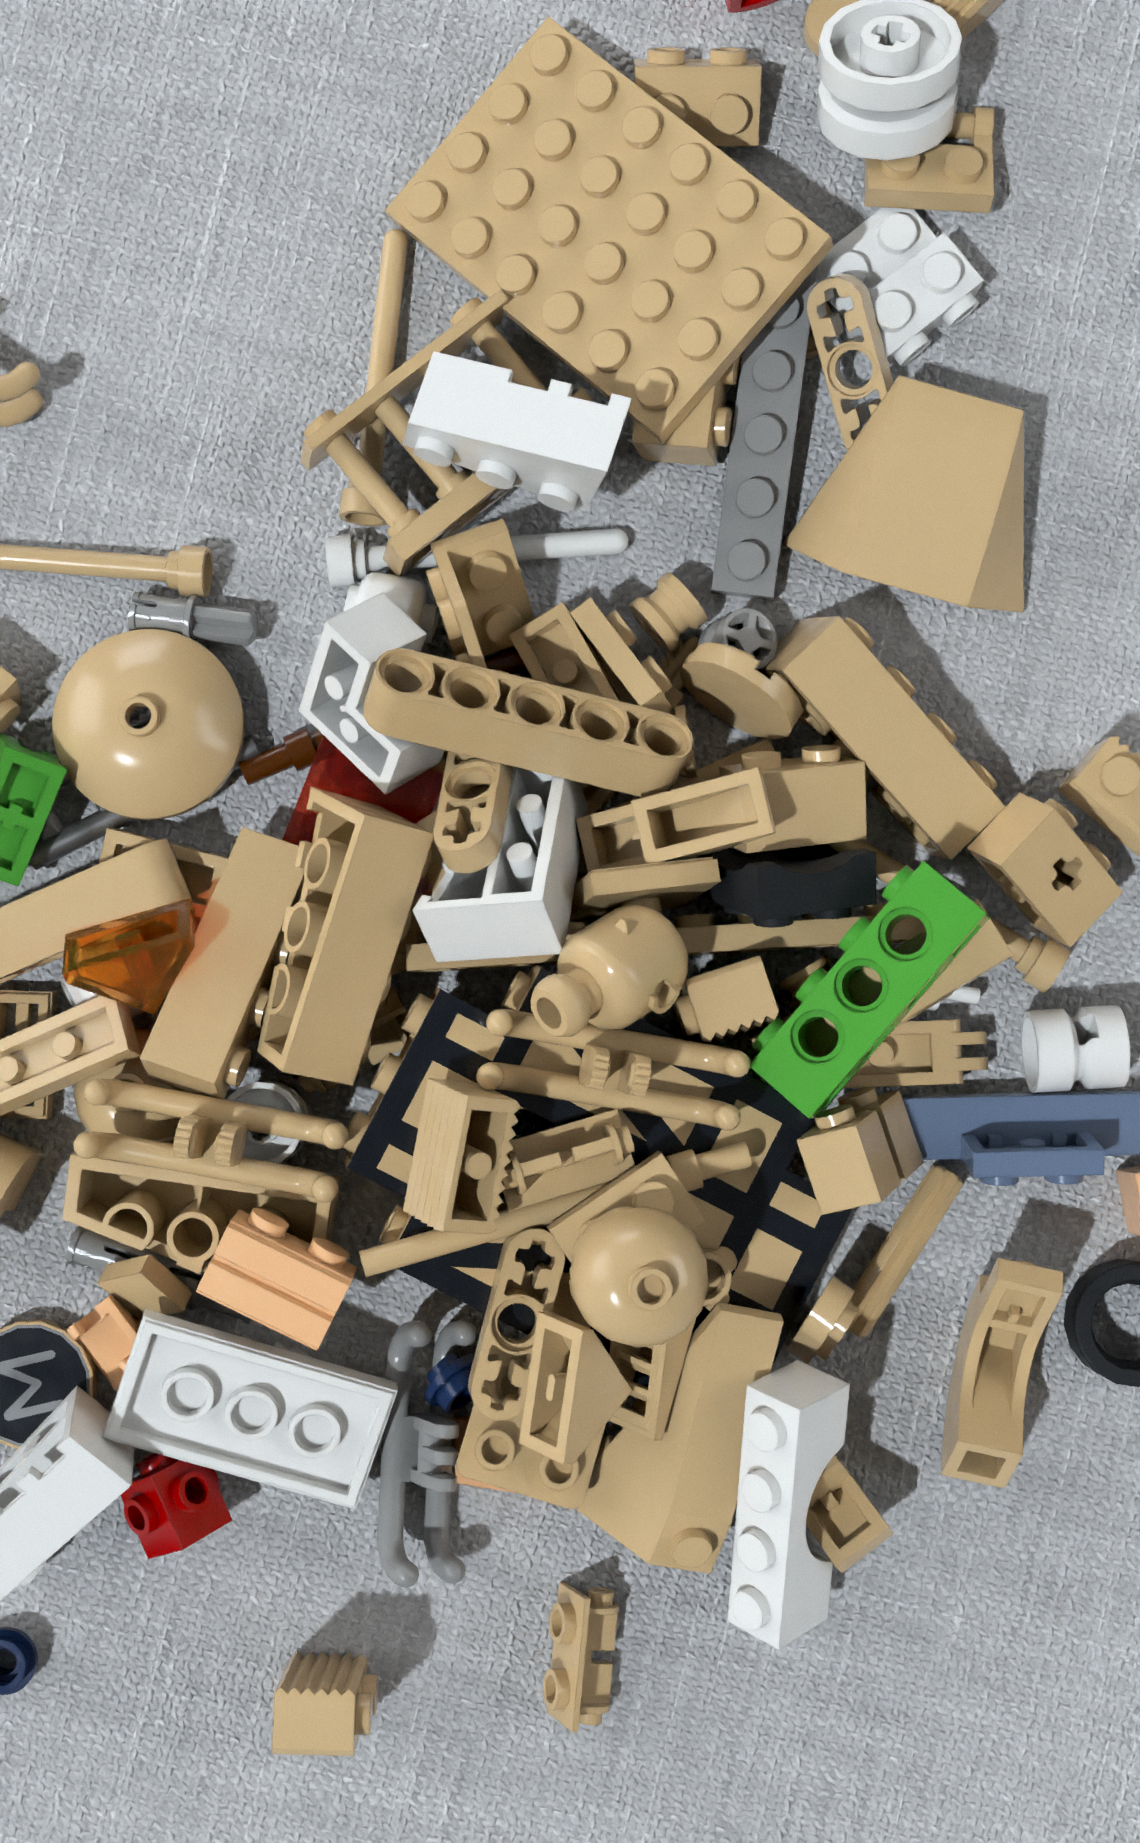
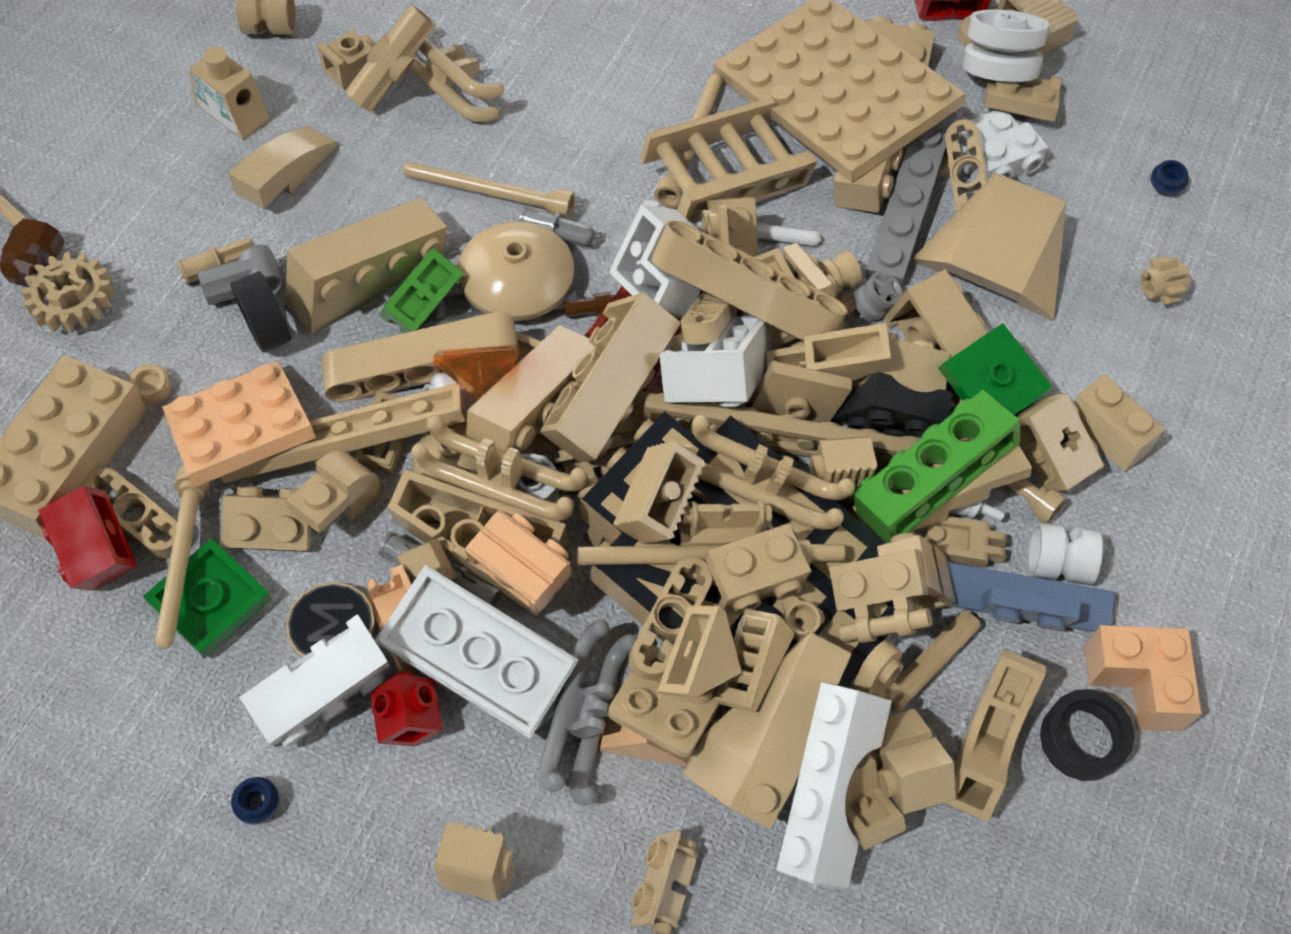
camera: 10 degrees right, 25 degrees down
(450, 1383) = (613, 668): dark blue plate -> none
(515, 432) = (771, 147): white wedge -> none
(613, 973) = (776, 417): tan piece -> none
(638, 1276) = (762, 582): tan cylinder -> none
(735, 692) = (875, 301): tan tile -> none
(810, 1202) = (878, 582): none -> tan plate
(890, 1438) = (913, 764): none -> tan piece
(941, 789) = (997, 367): none -> green plate

